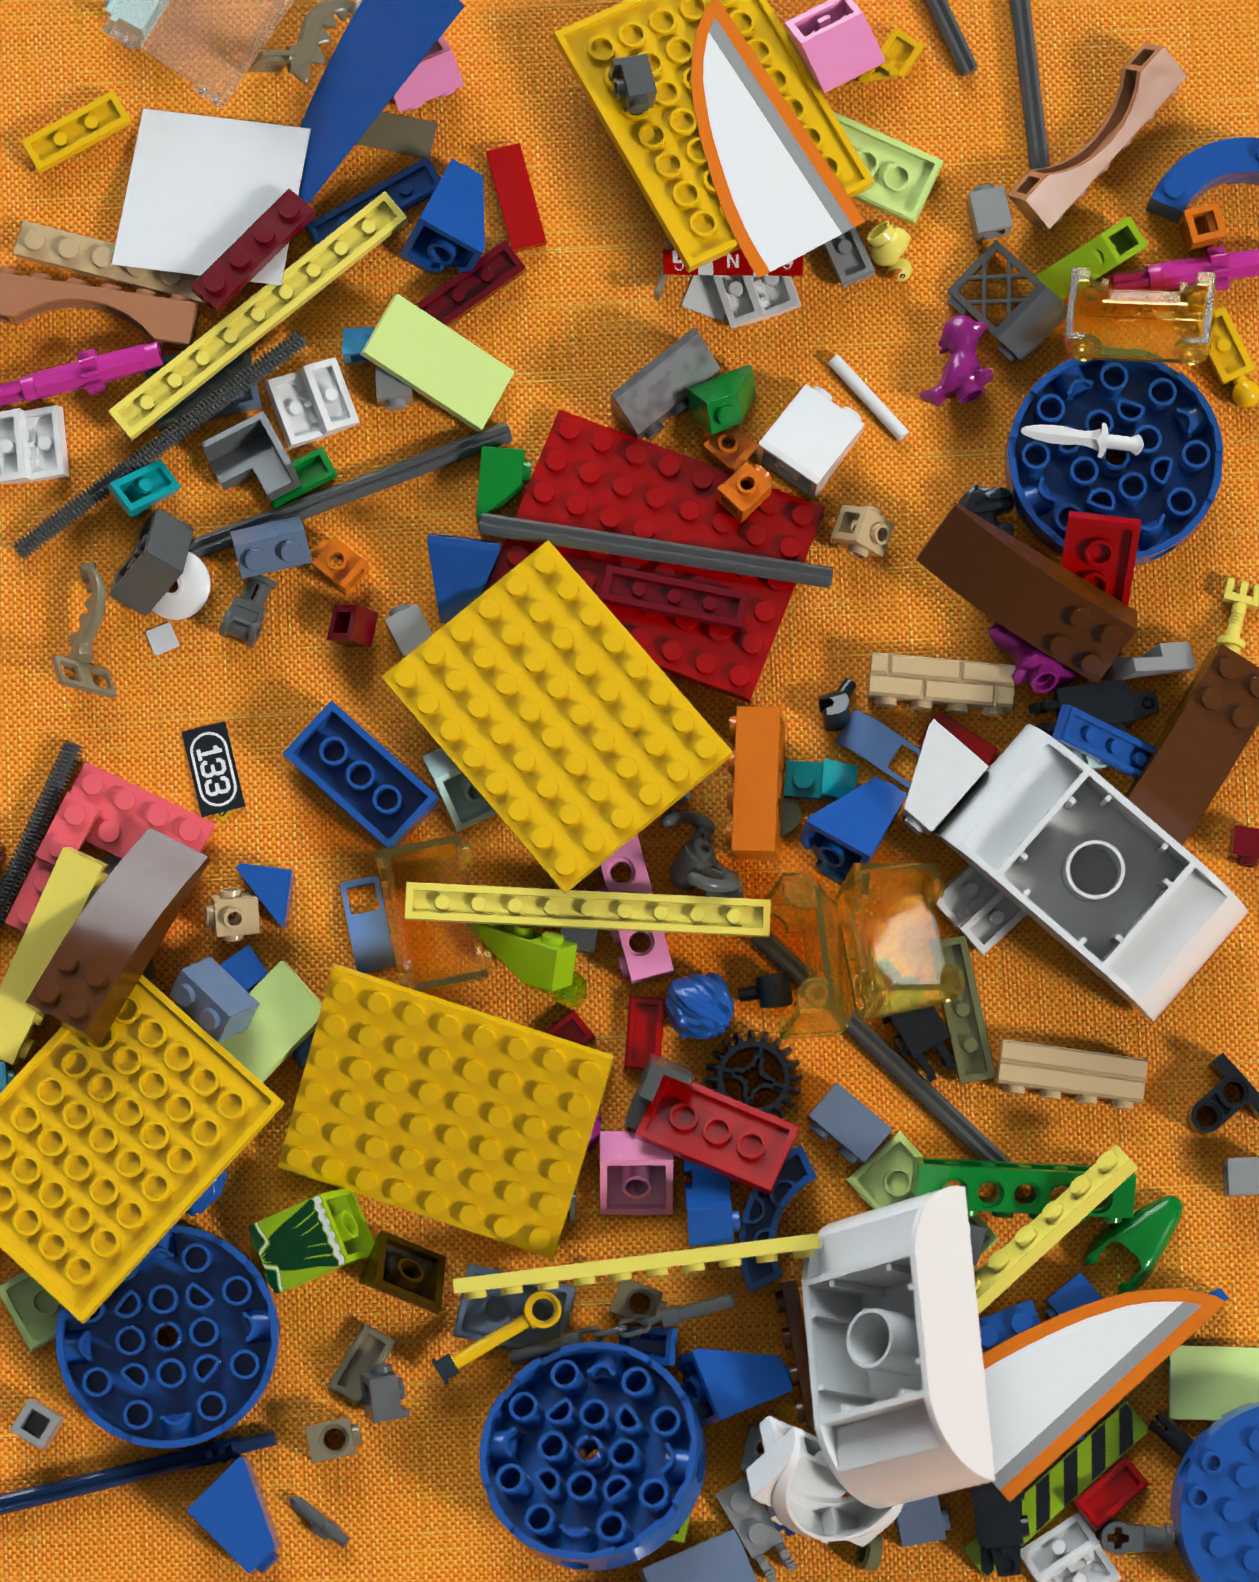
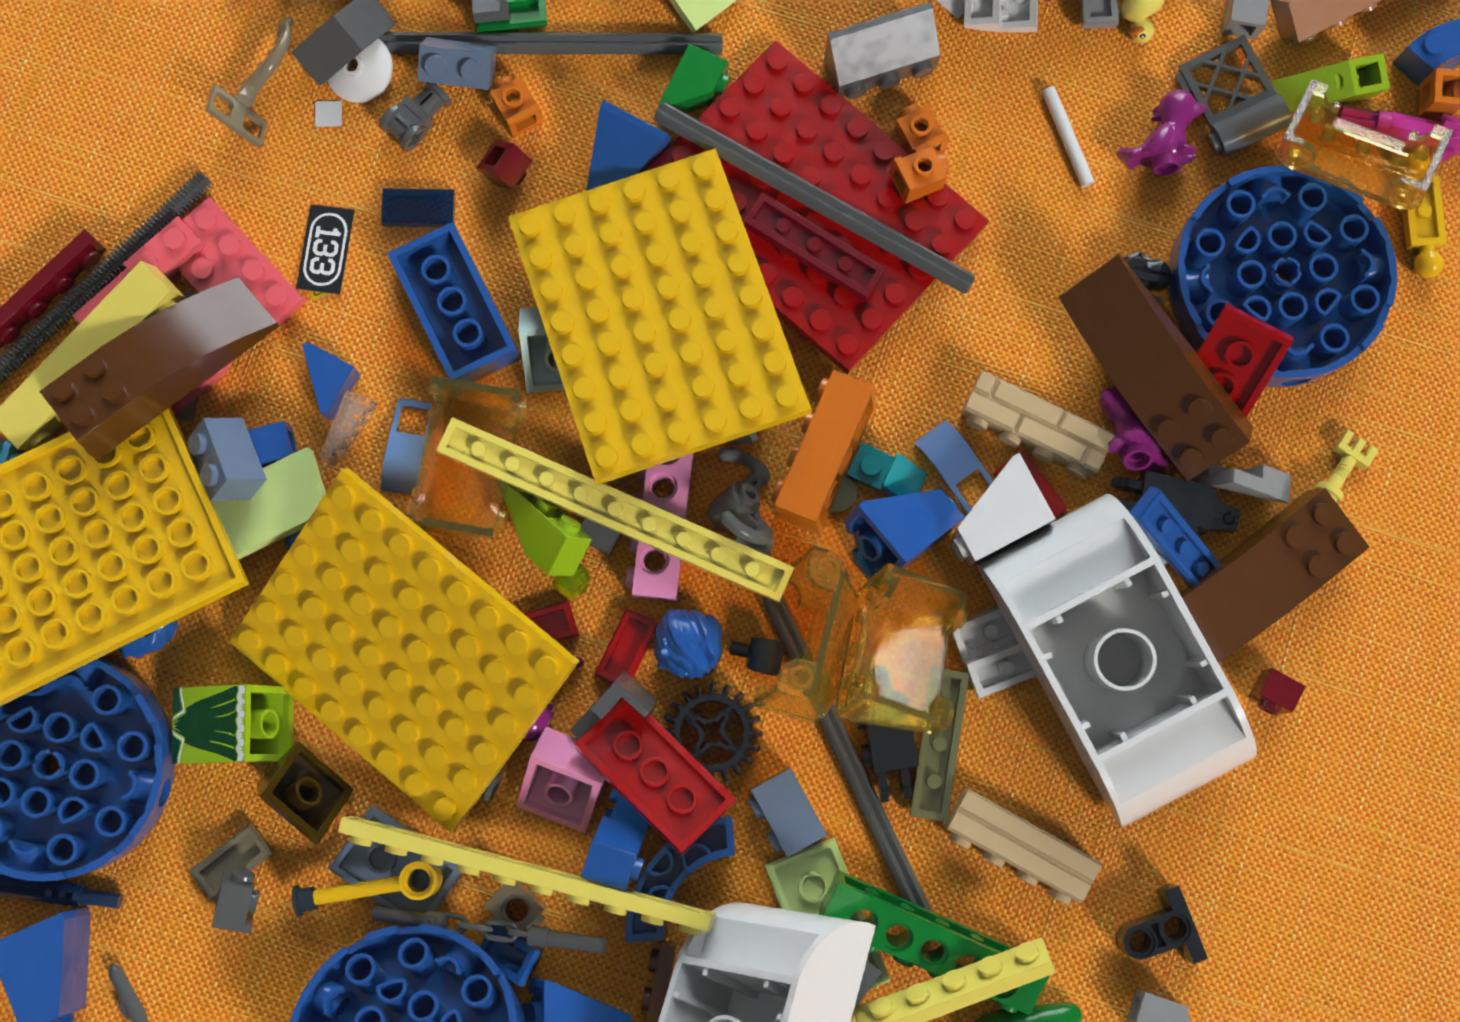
camera: 20 degrees right, 0 degrees up
(242, 923) = (296, 385): tan brick -> none
(285, 696) = (418, 207): none -> clear blue tile
(306, 920) = (349, 421): none -> clear slope
(316, 1439) = (155, 928): dark tan brick -> none
(407, 627) = (554, 182): light grey brick -> none
(723, 399) = (931, 84): green slope -> none
(809, 440) = (997, 153): white slope -> none
(836, 706) = (928, 409): black piece -> none
(862, 531) = (1016, 254): tan brick -> none
(1096, 439) = (1275, 249): white sword -> none

